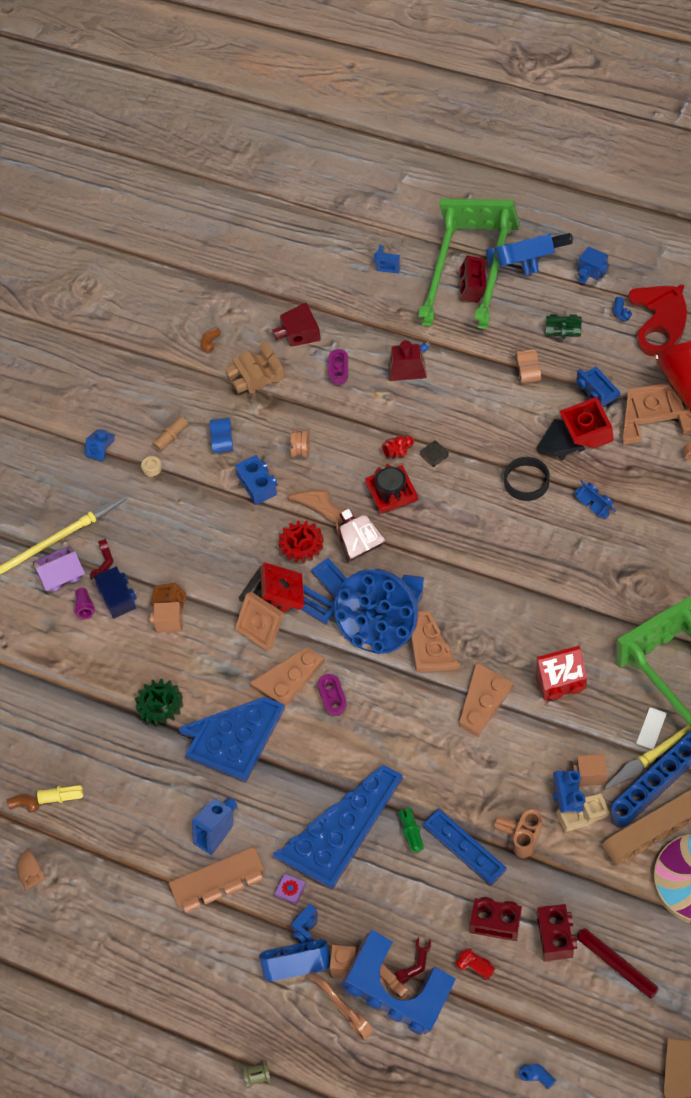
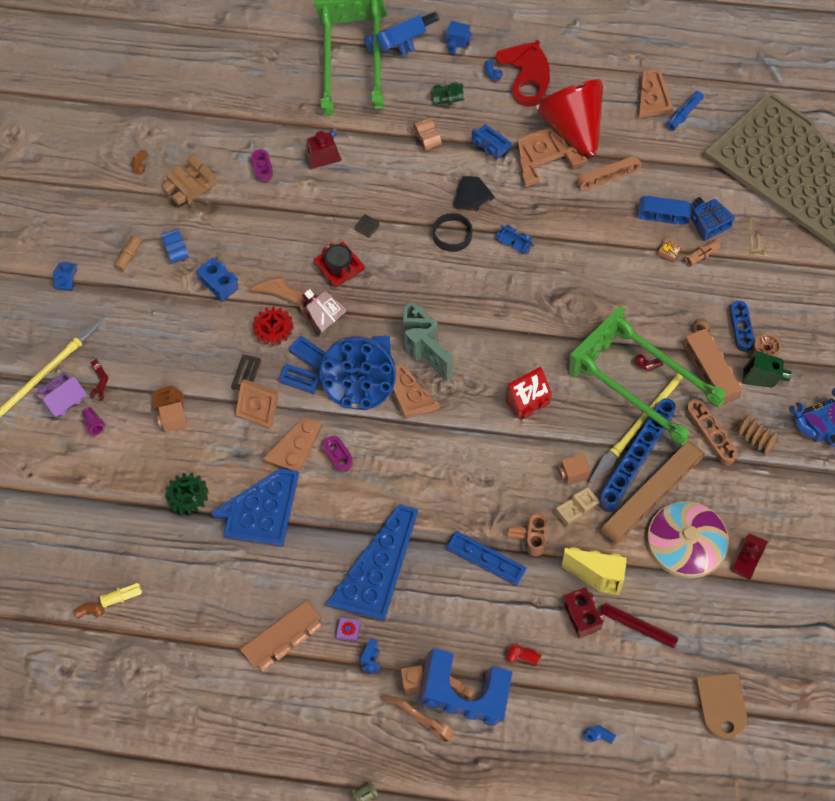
camera: 20 degrees left, 5 degrees up
(29, 870) = (111, 668): nougat brick -> none
(115, 592) = (119, 405): clear blue brick -> none
(151, 466) = (118, 285): tan tile -> none
(213, 824) = (266, 589): blue torso -> none
(281, 587) = (268, 369): red piece -> none
(295, 960) = (371, 689): blue beam -> none
(298, 326) = (216, 136): dark red torso -> none
(300, 443) = (247, 239): nougat wheel -> none
(386, 262) = (279, 64): blue bracket -> none
(397, 446) = (333, 226): red piece -> none
(405, 975) = (467, 678): dark red arm -> none
(411, 830) = (438, 555): green axle -> none
(459, 588) = (422, 340): none -> sand green piece
(472, 279) = (359, 66): dark red brick -> none
(483, 699) = (468, 429): nougat wing -> none
(494, 925) = (531, 618): dark red brick -> none
(568, 792) = (561, 491): blue hips -> none
(587, 890) = (597, 570): none -> light yellow slope
(588, 423) = (493, 174): red slope -> none
(651, 728) = (613, 423): white sticker -> none

